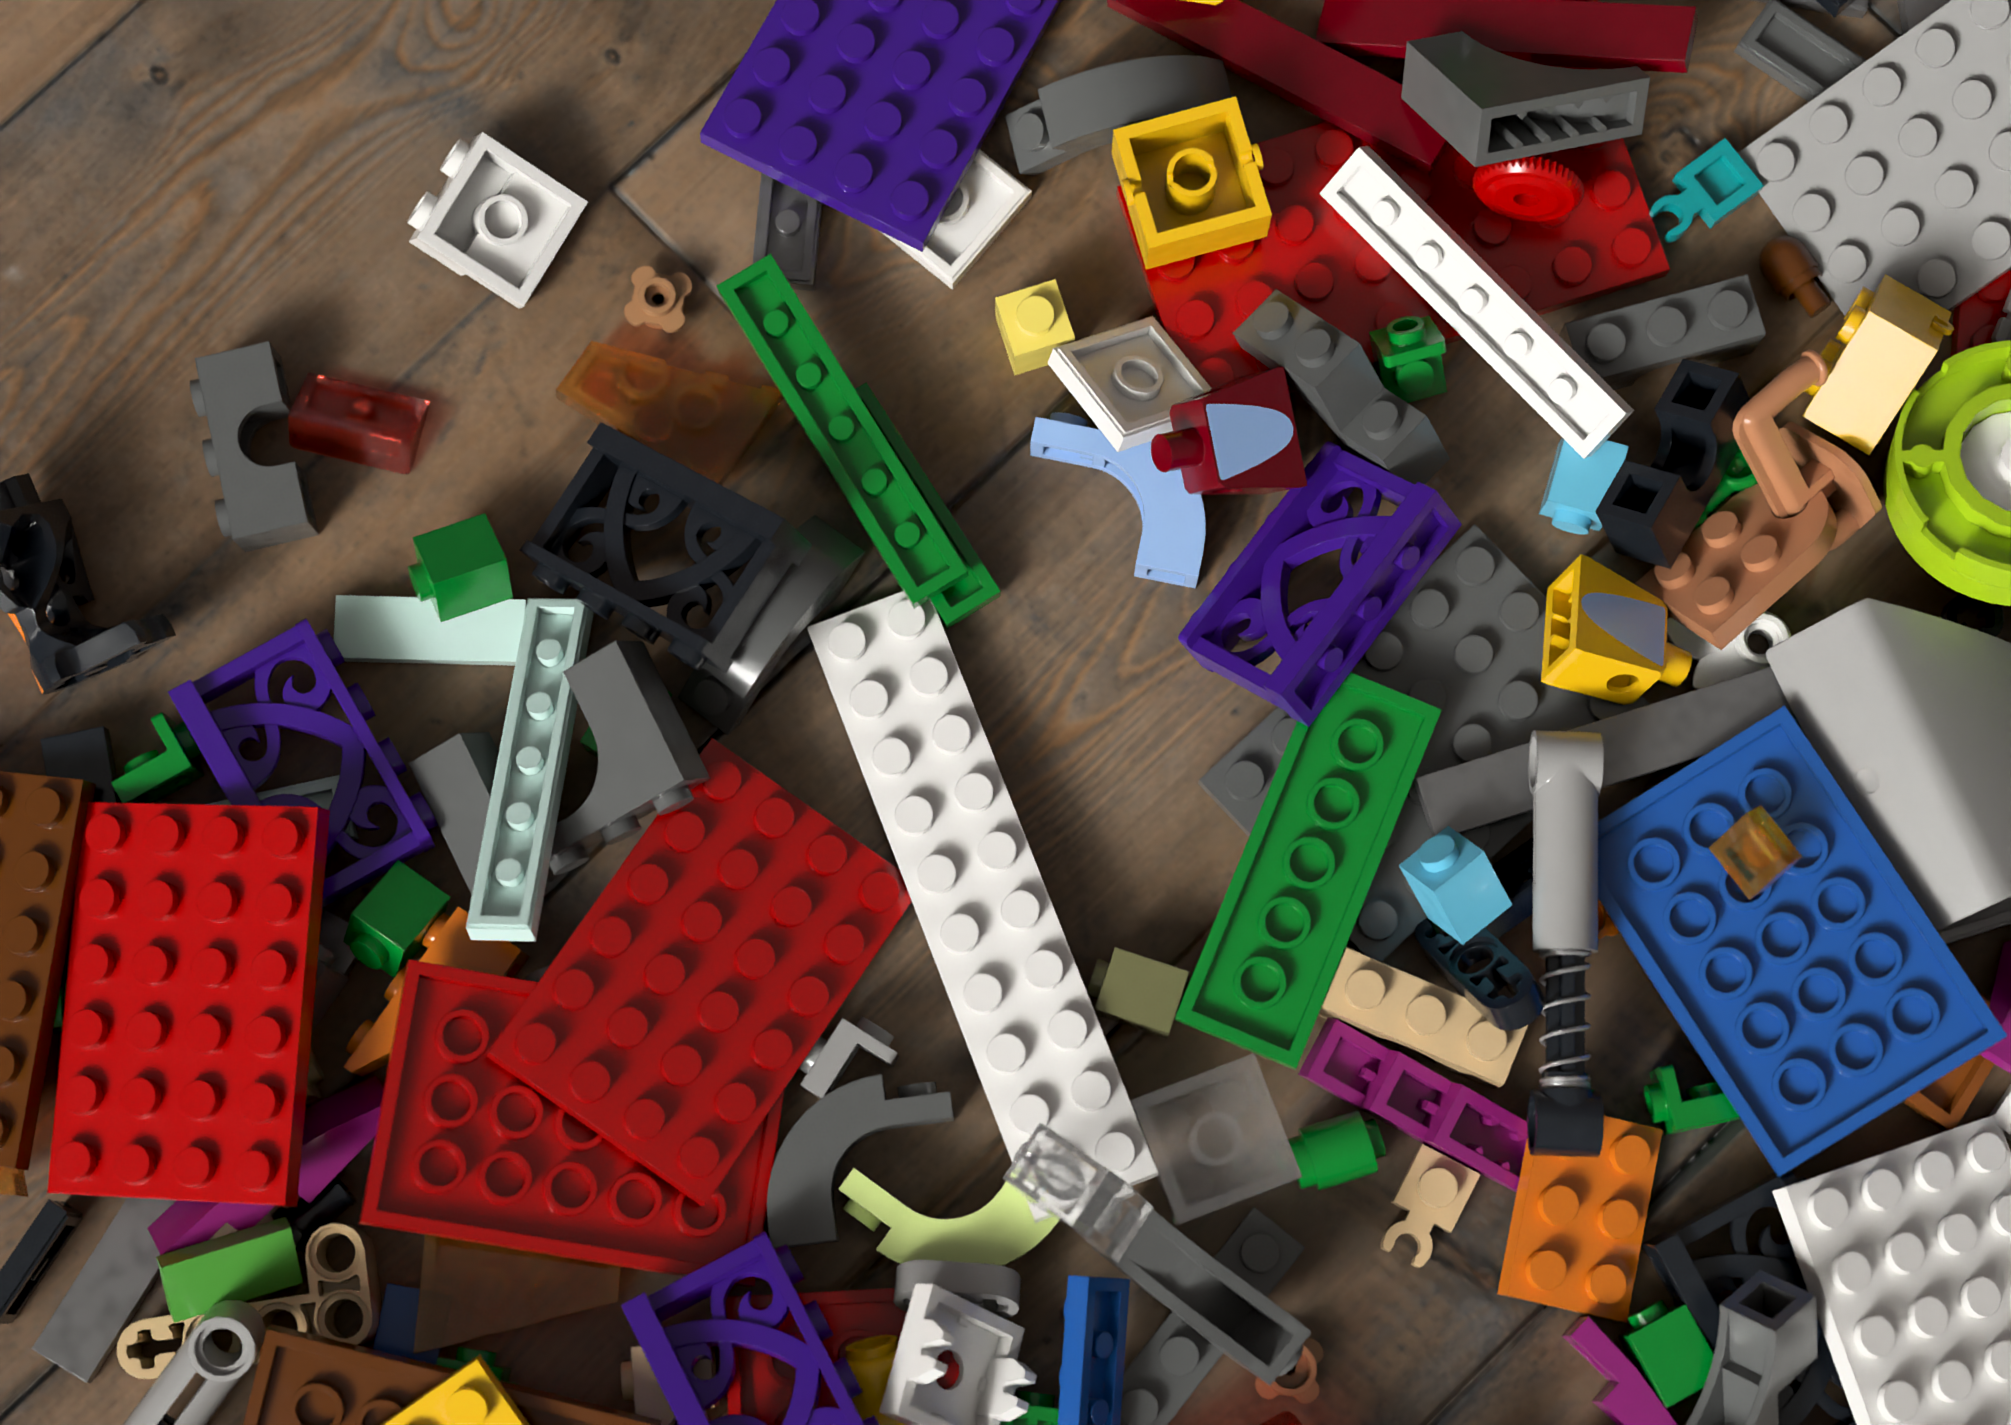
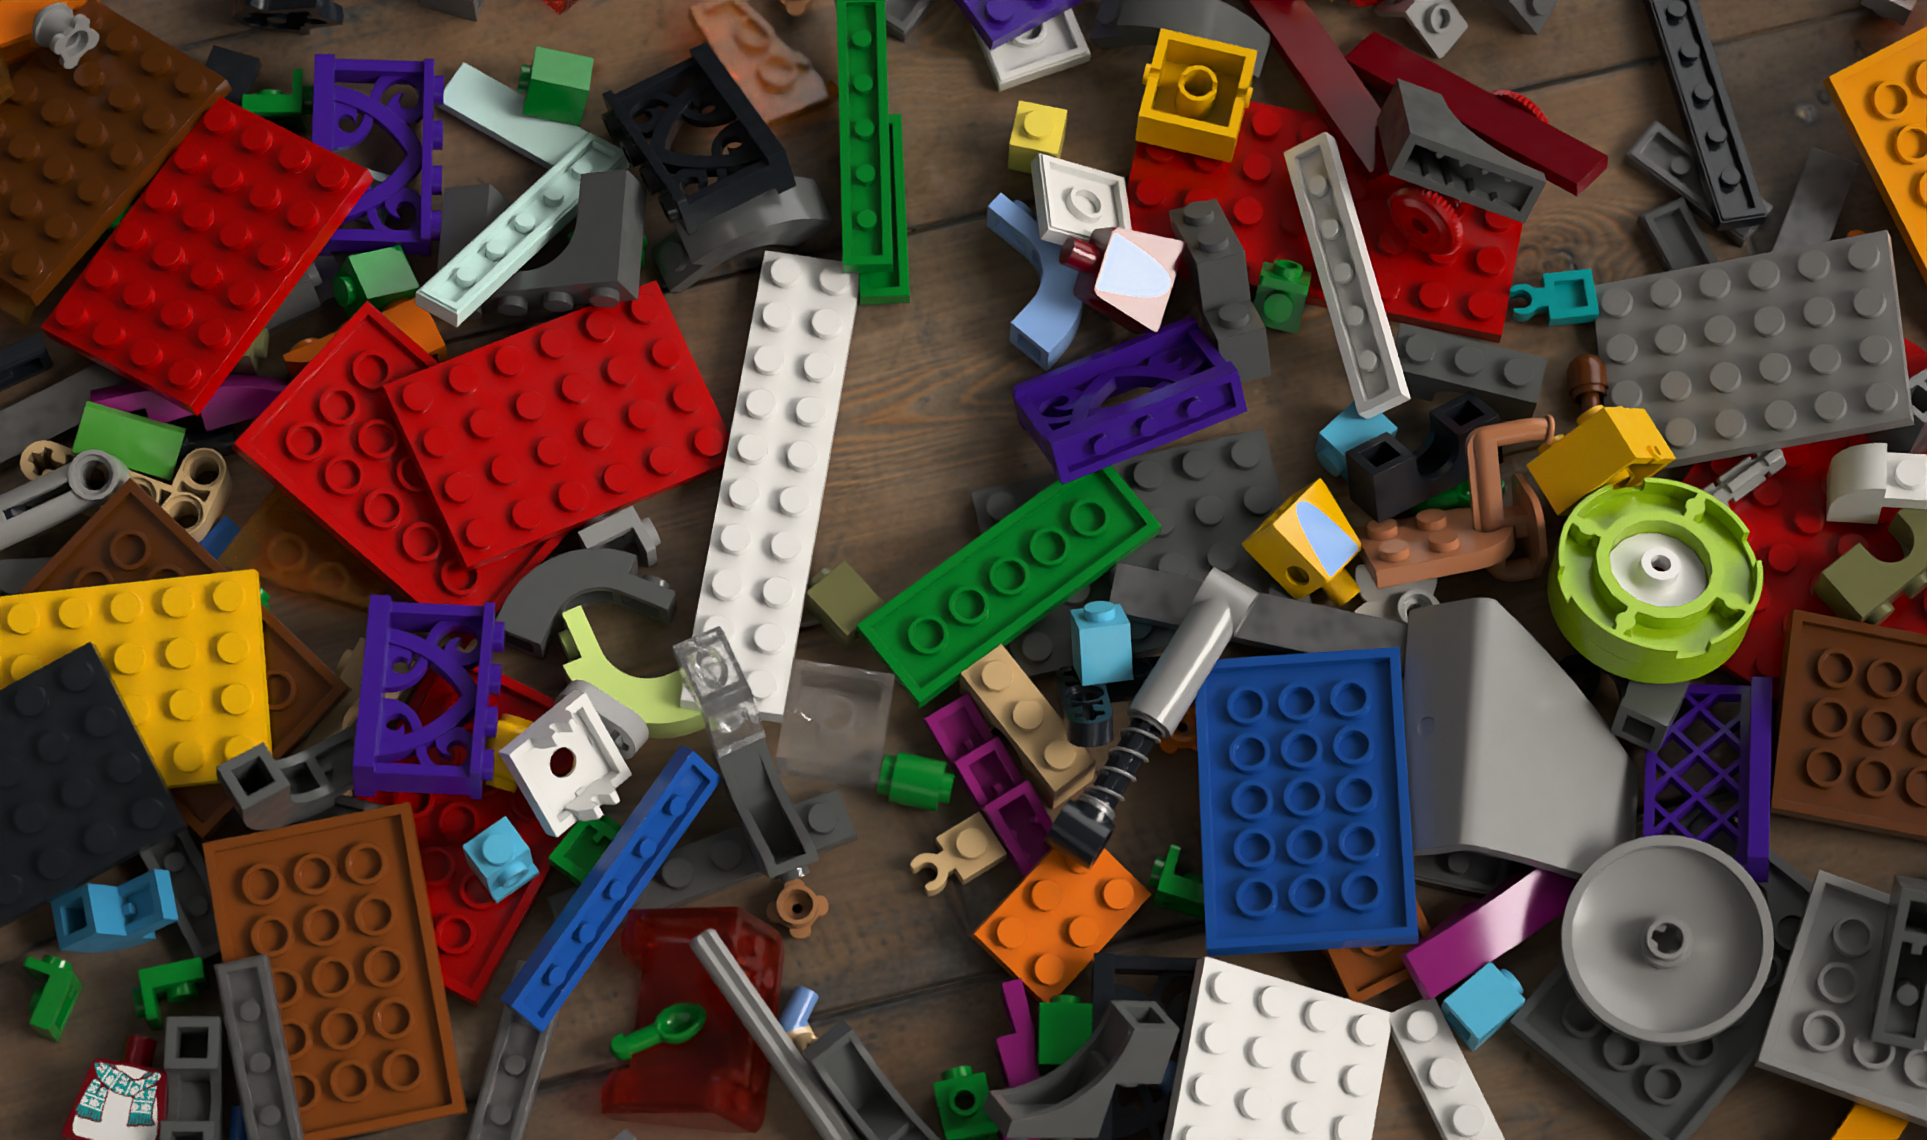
camera: 25 degrees right, 10 degrees down
(1755, 852) = (1316, 724): clear orange plate -> none

